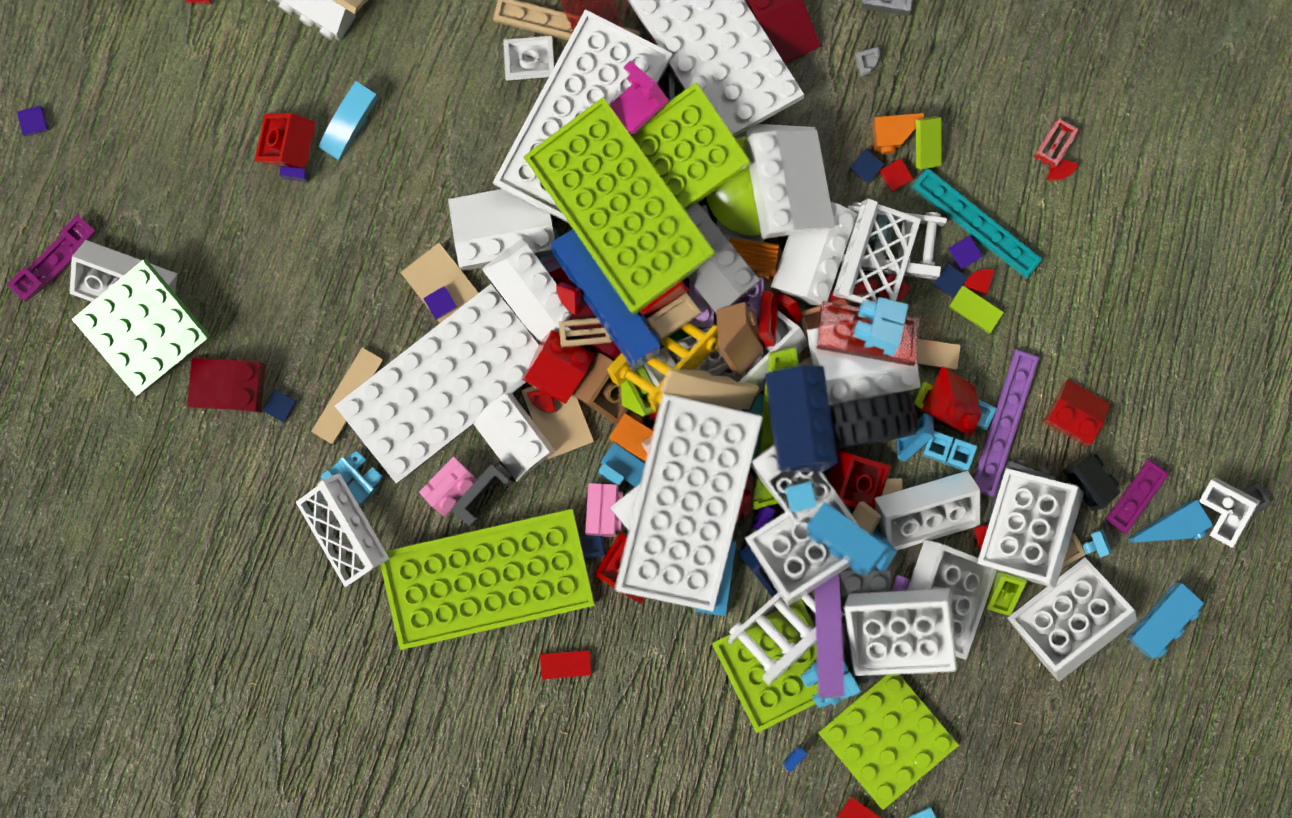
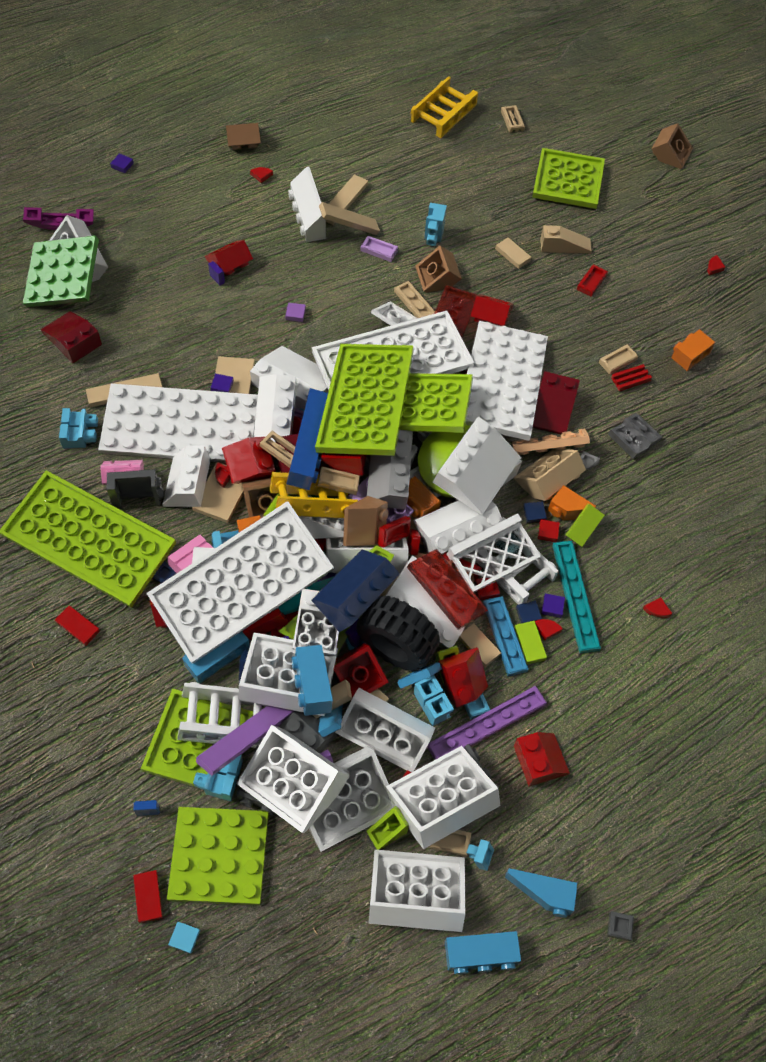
camera: 35 degrees right, 25 degrees down
(279, 406) = (85, 366): dark blue tile -> none
(348, 120) = (270, 272): medium azure slope -> none
(351, 525) = (43, 443): white fence -> none
(421, 144) = (295, 312): none -> medium lavender tile
(569, 297) = (291, 424): red tile -> none
(639, 100) = (434, 365): dark pink bracket -> none
(709, 389) = (319, 528): tan slope -> none
(800, 497) = (310, 631): medium azure tile -> none
(827, 65) = (552, 441): none -> light nougat wing
(847, 109) = (550, 473): none -> tan slope
(884, 326) = (461, 586): medium azure hips -> none
(948, 323) = (505, 636): none -> dark azure tile
(1047, 157) = (667, 594): tile -> none
(1092, 479) = (513, 807): black slope -> none
(1136, 496) = (536, 849): magenta tile -> none
(1235, 510) = (598, 916): white brick -> none

